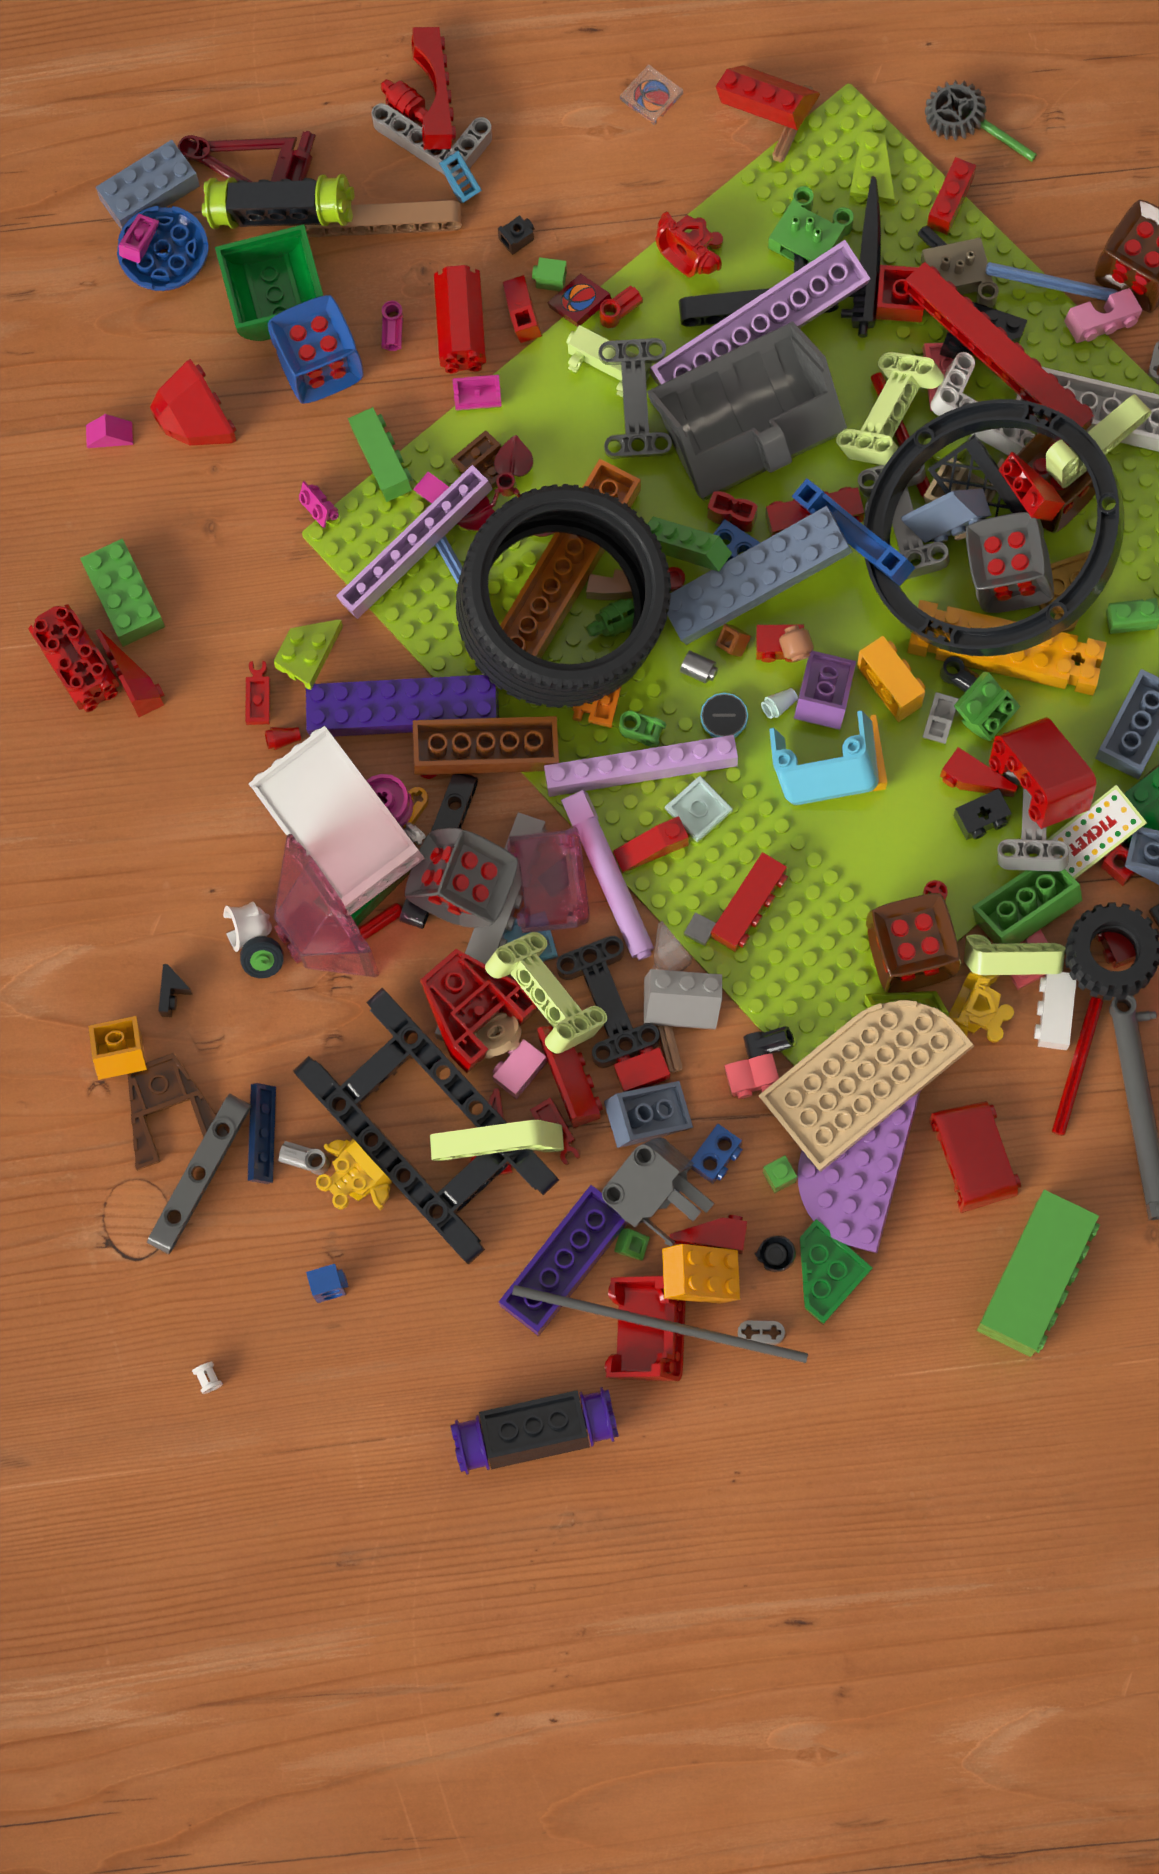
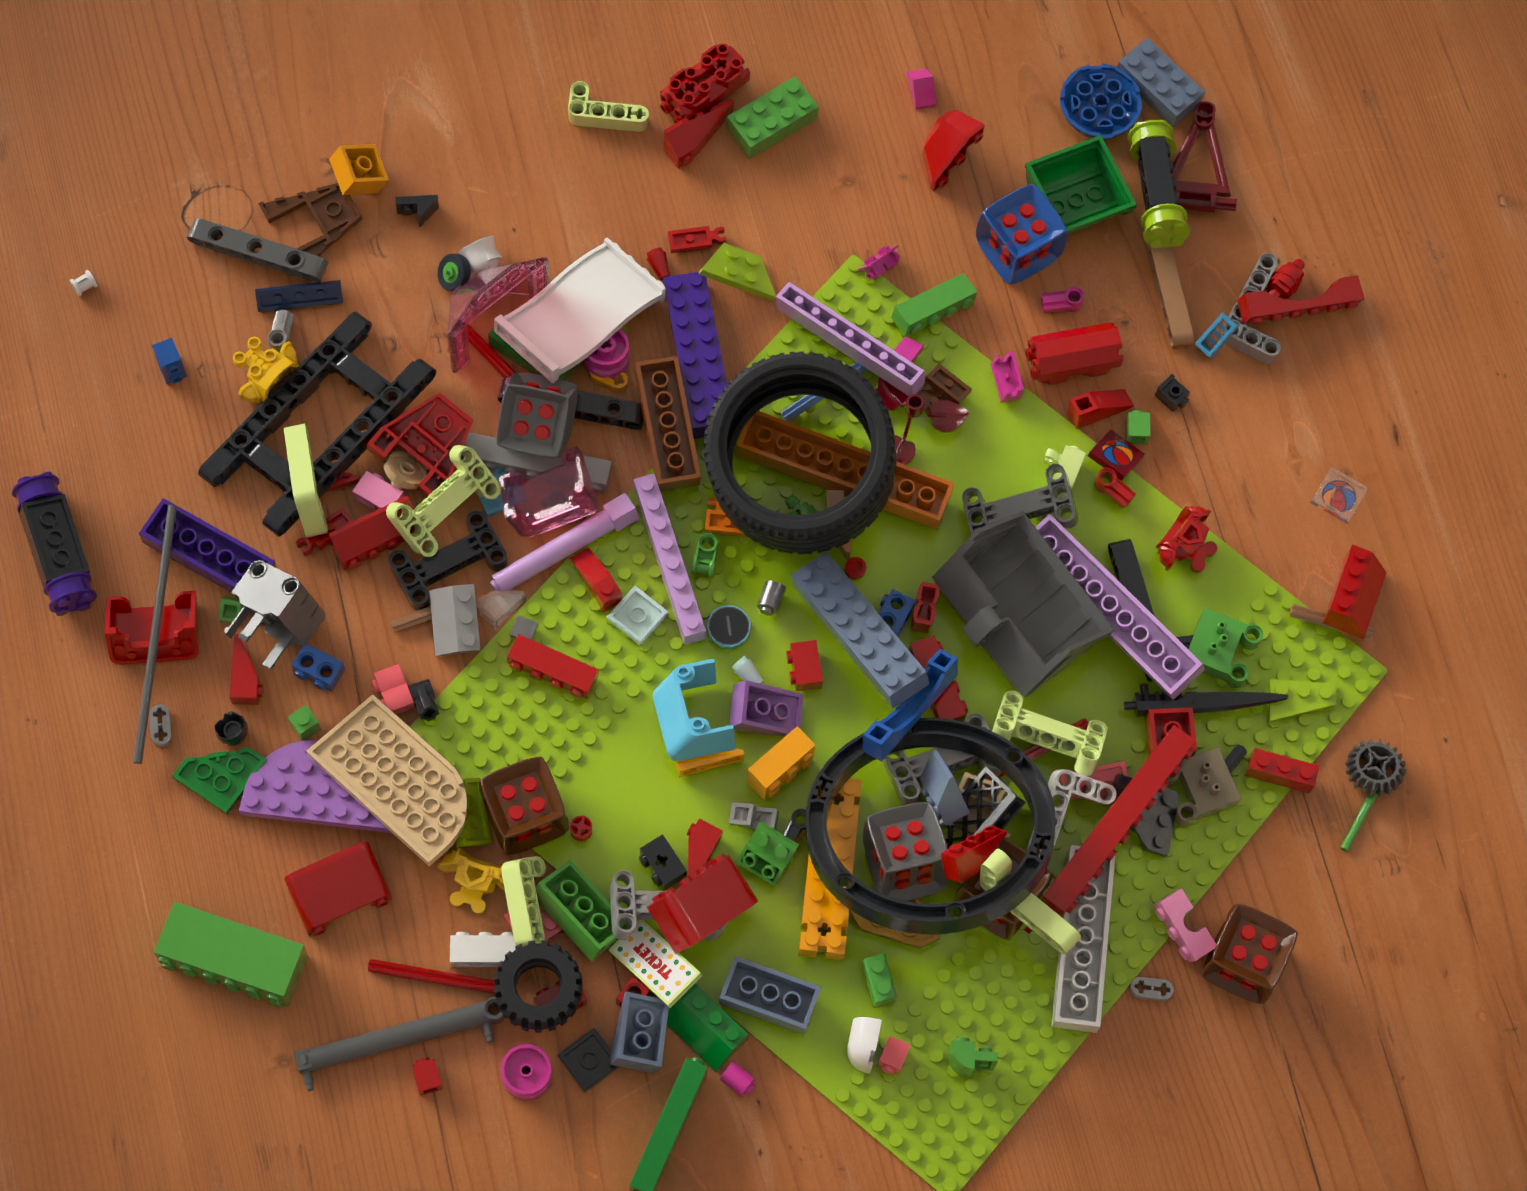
camera: 70 degrees right, 5 degrees down
(83, 769) = (608, 111): none -> yellowish green beam
(138, 238) = (1104, 78): dark pink slope -> none
(414, 833) = (579, 377): white axle -> none
(642, 1070) = (387, 596): red brick -> none
(647, 1113) = (349, 607): sand blue slope -> none
(690, 544) = (881, 565): bright green brick -> none
(701, 1274) = (201, 661): light orange brick -> none
(733, 640) = (803, 625): dark orange slope -> none
(796, 643) = (799, 672): nougat head -> none
(1048, 281) = (1209, 870): medium blue axle -> none

